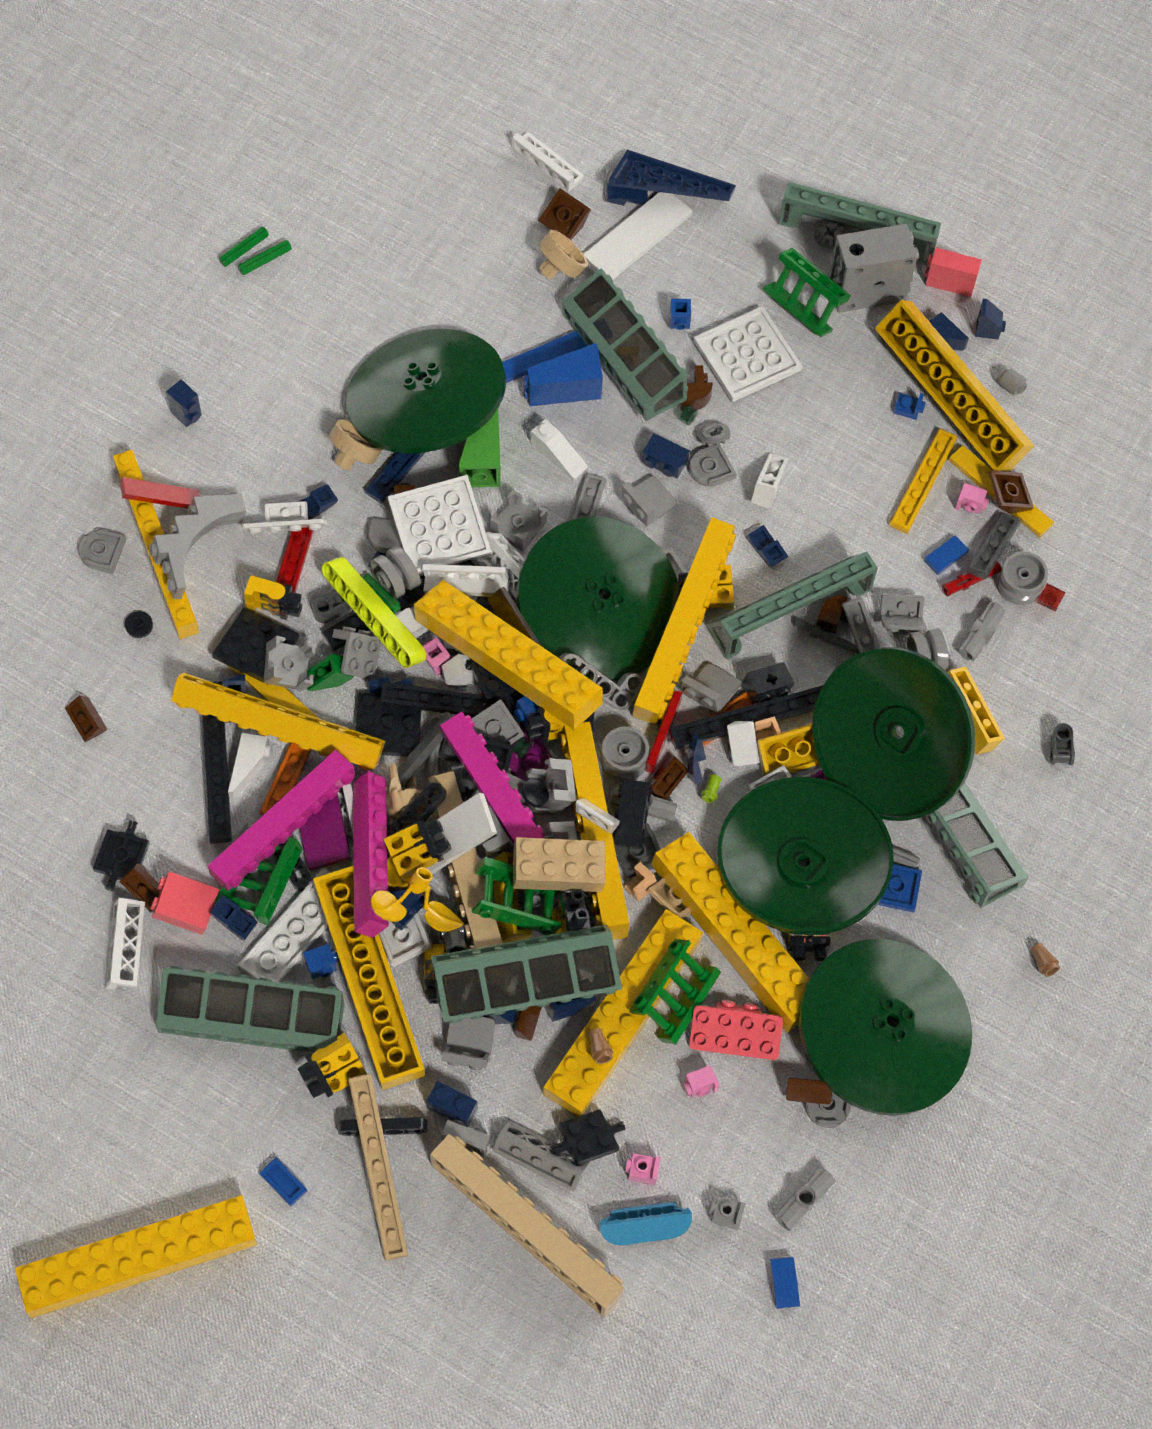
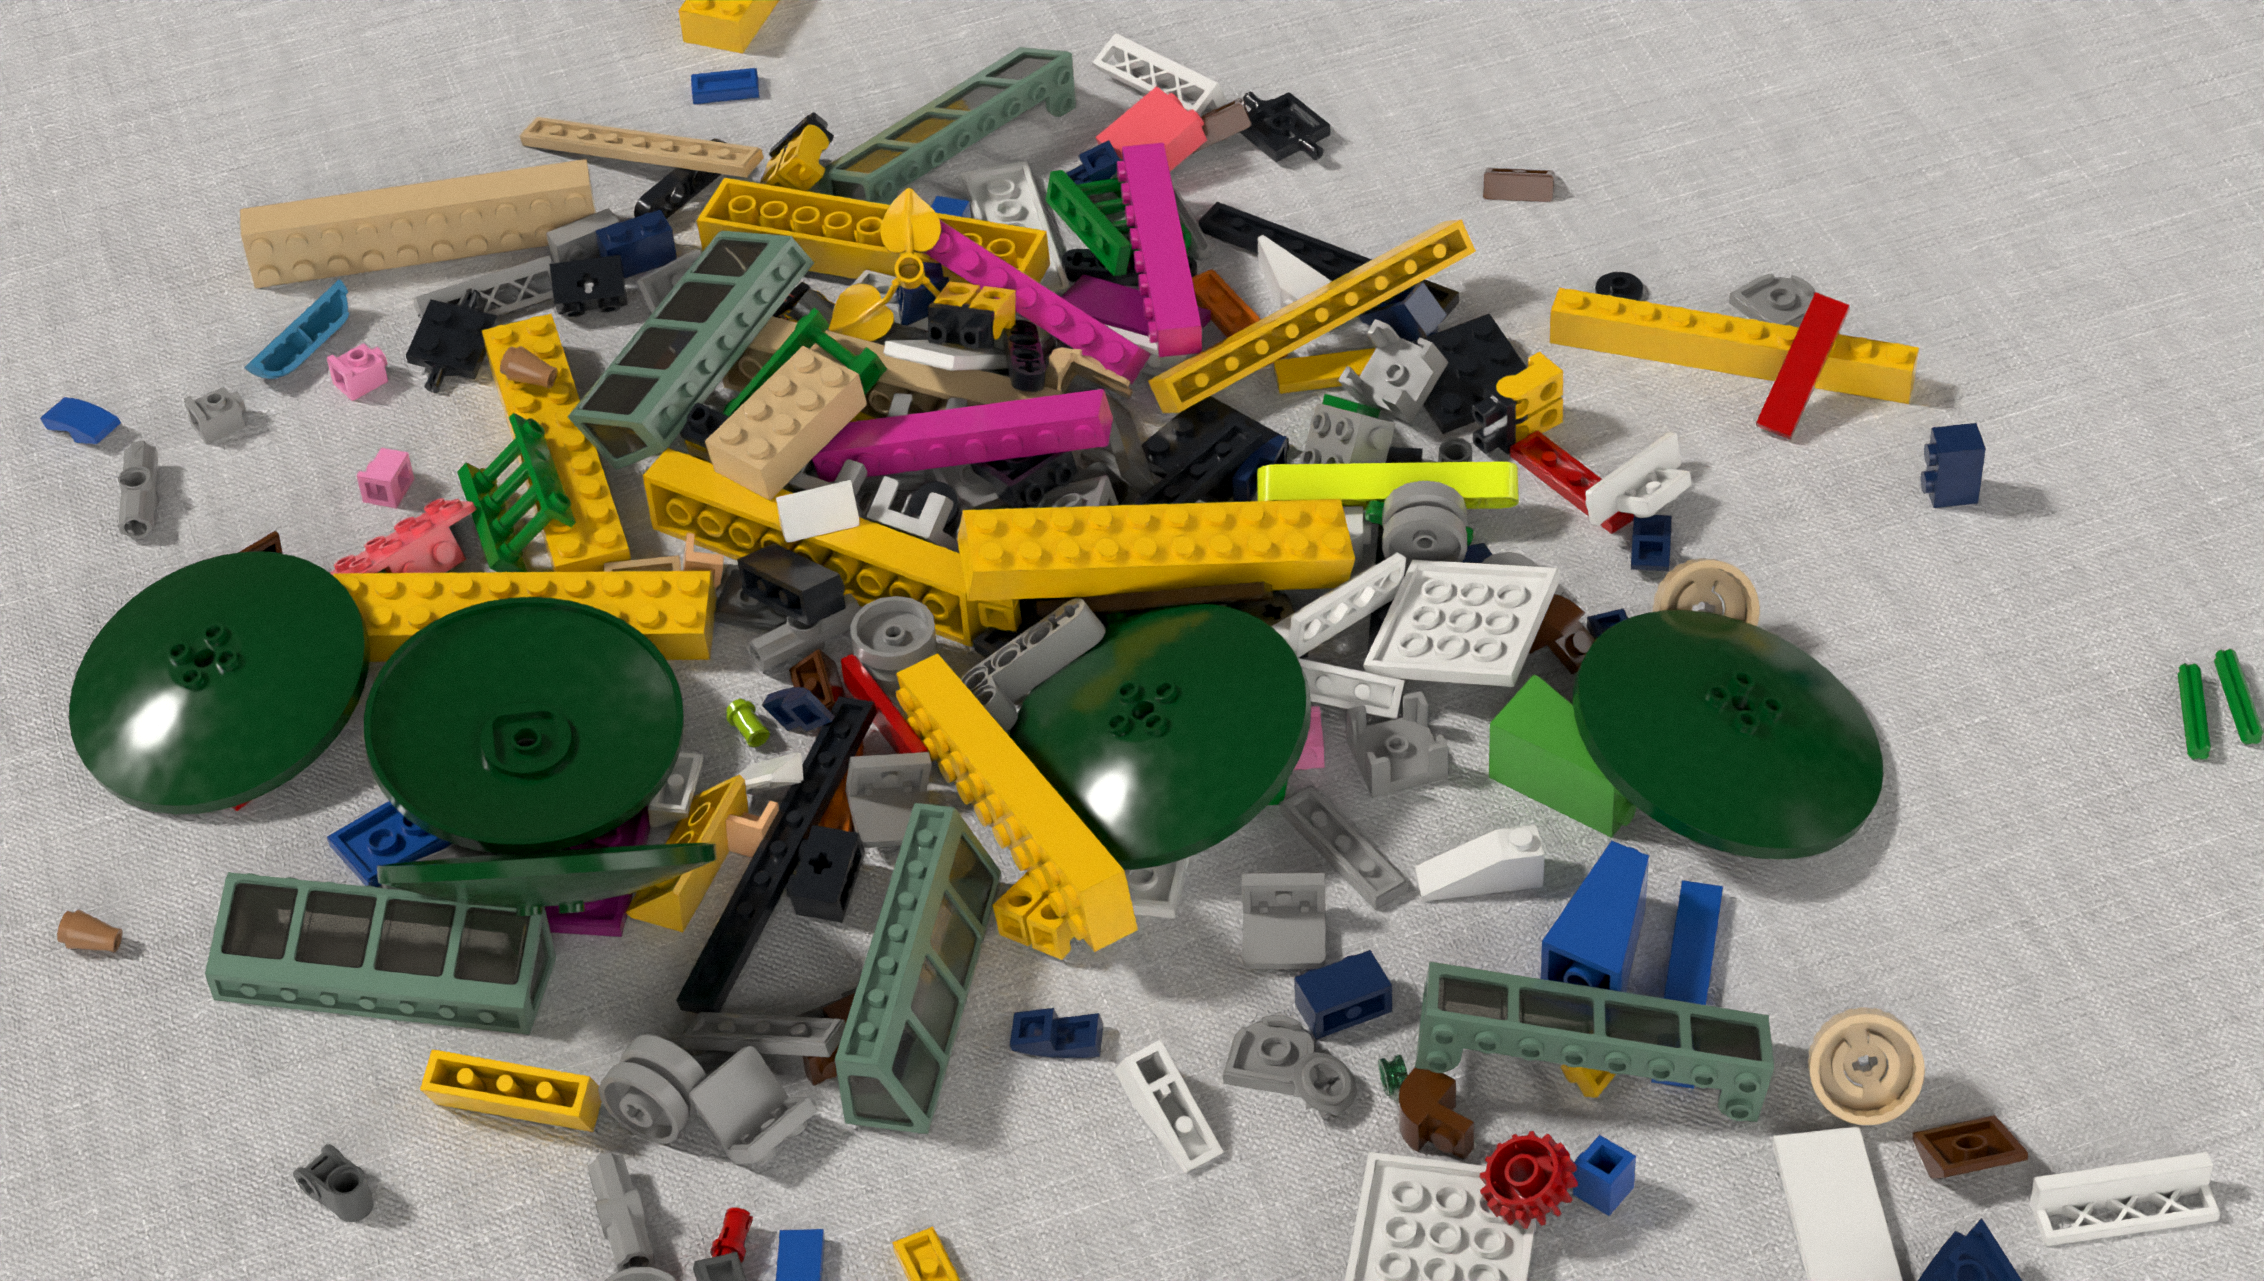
camera: 135 degrees right, 20 degrees down
(204, 516) = (1707, 351): light grey arch -> none
(501, 1099) = (570, 283): none -> black brick
(716, 321) = (1513, 1163): none -> red gear

